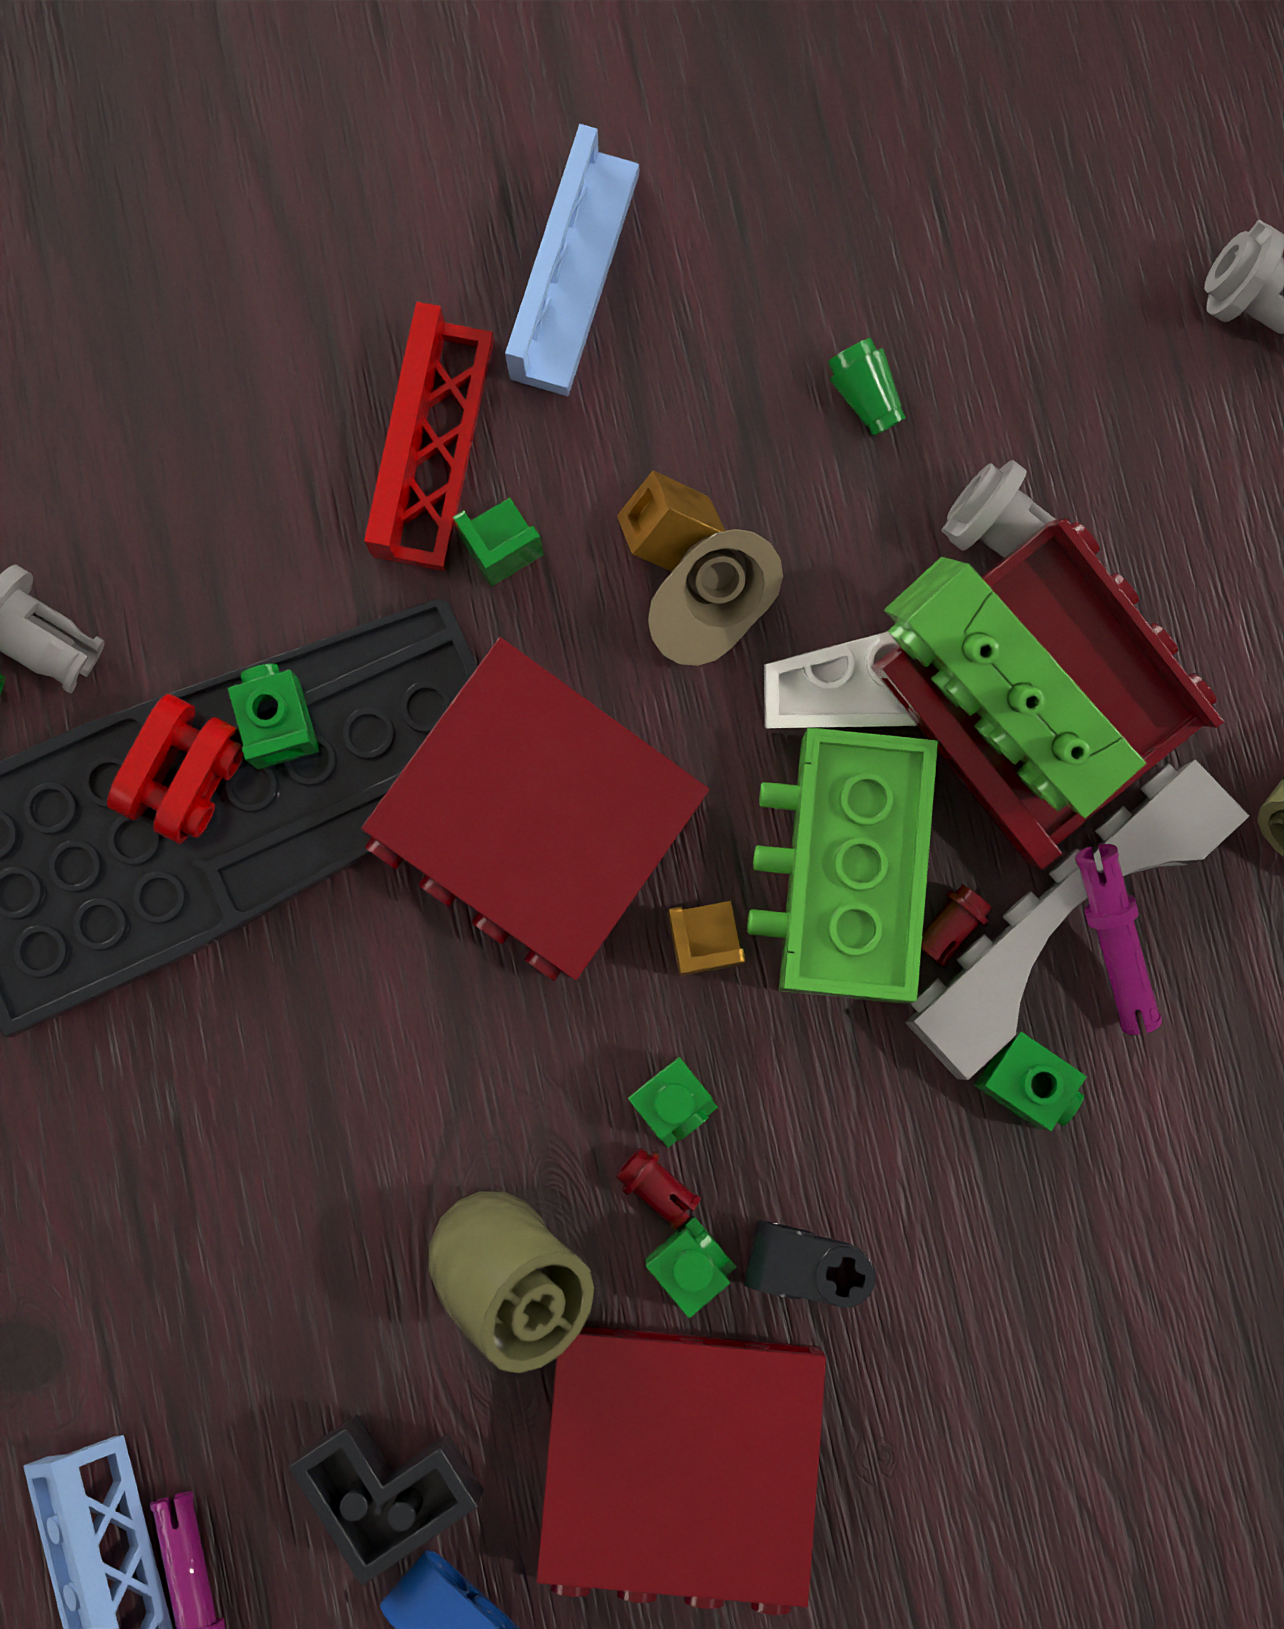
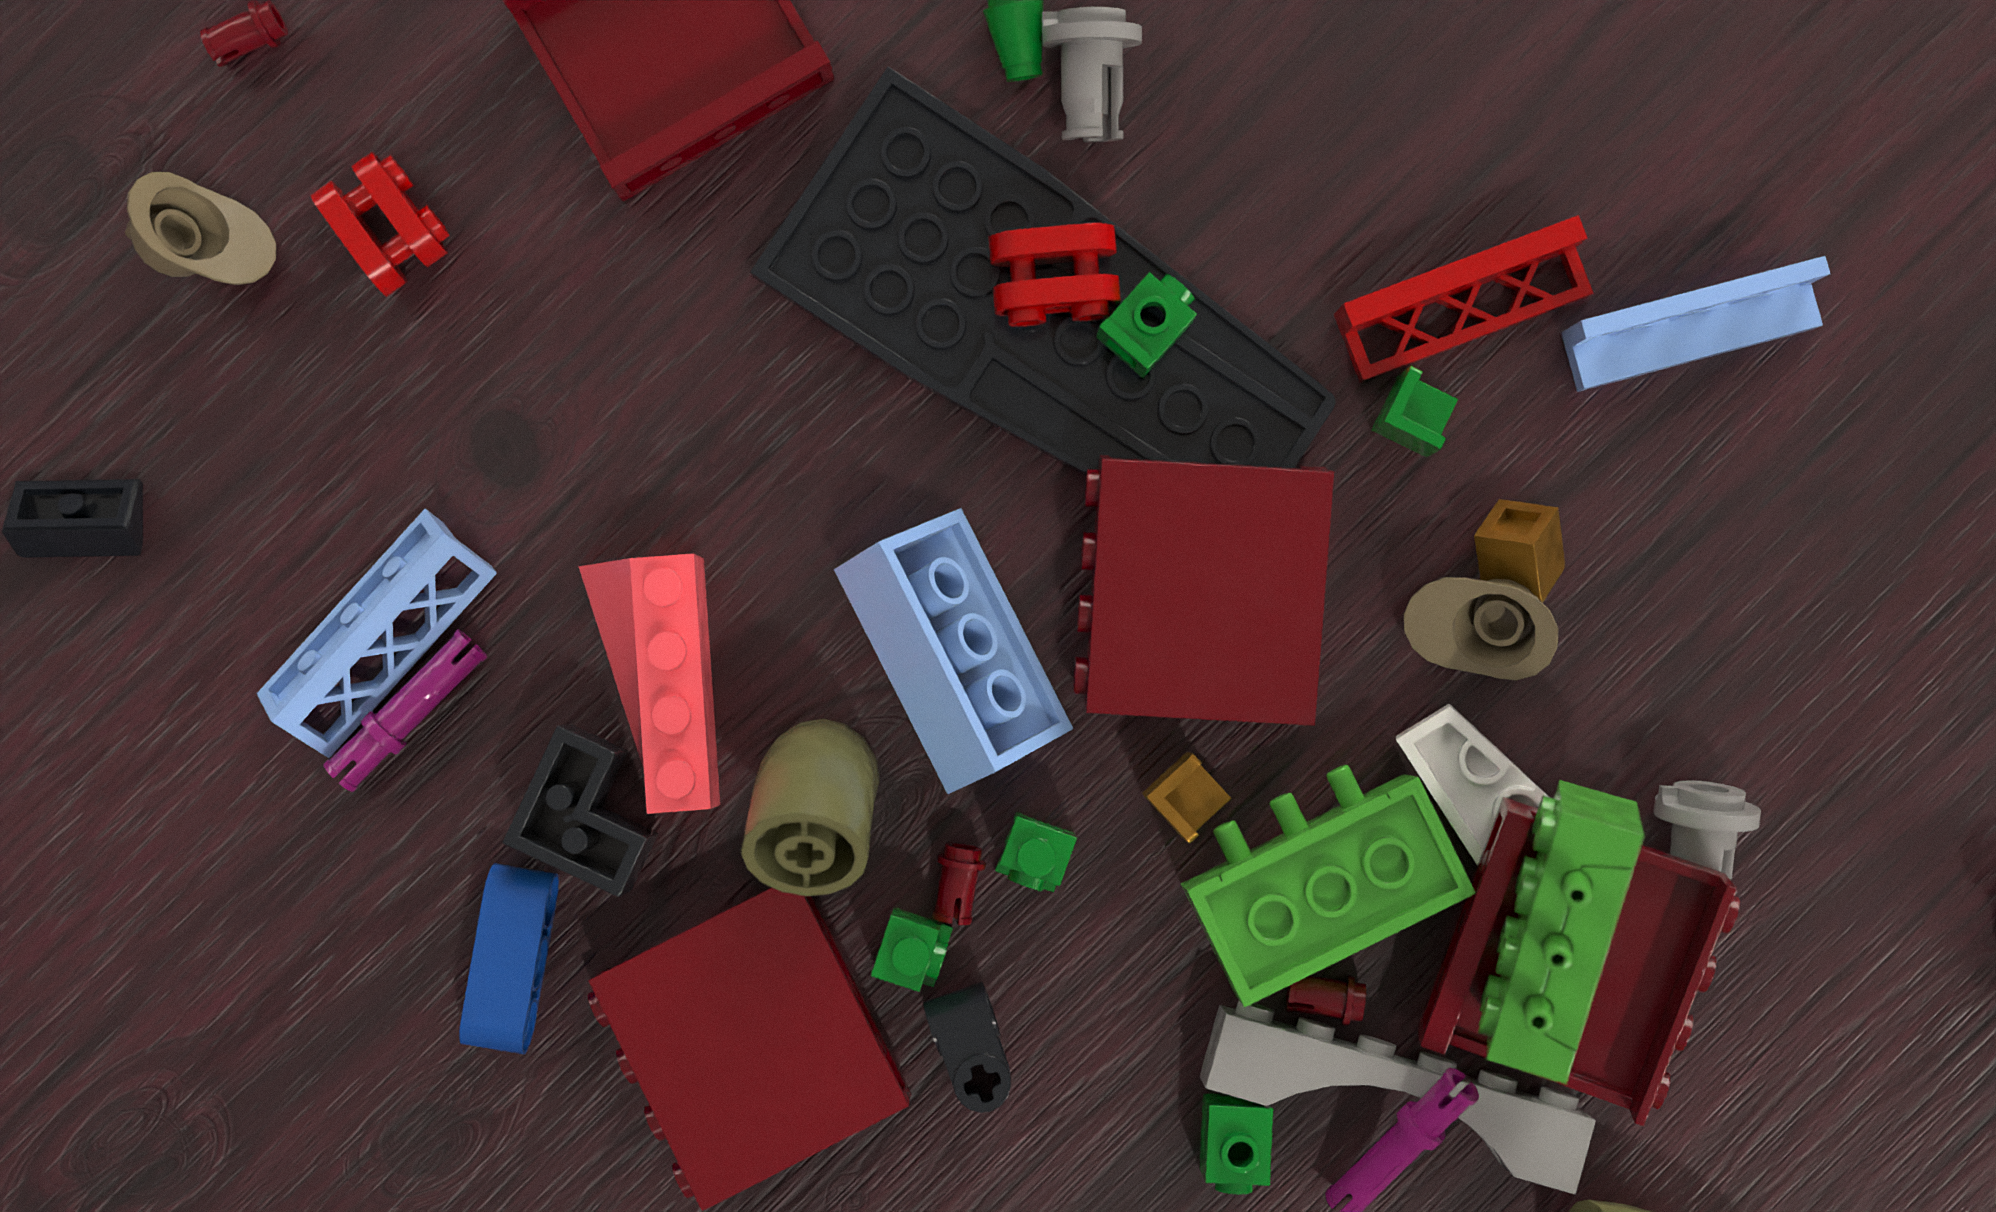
camera: 55 degrees right, 5 degrees up
(292, 1332) = (660, 658): none -> coral wedge
(448, 1064) = (953, 649): none -> light blue slope
(867, 385) = (1748, 644): green cone -> none

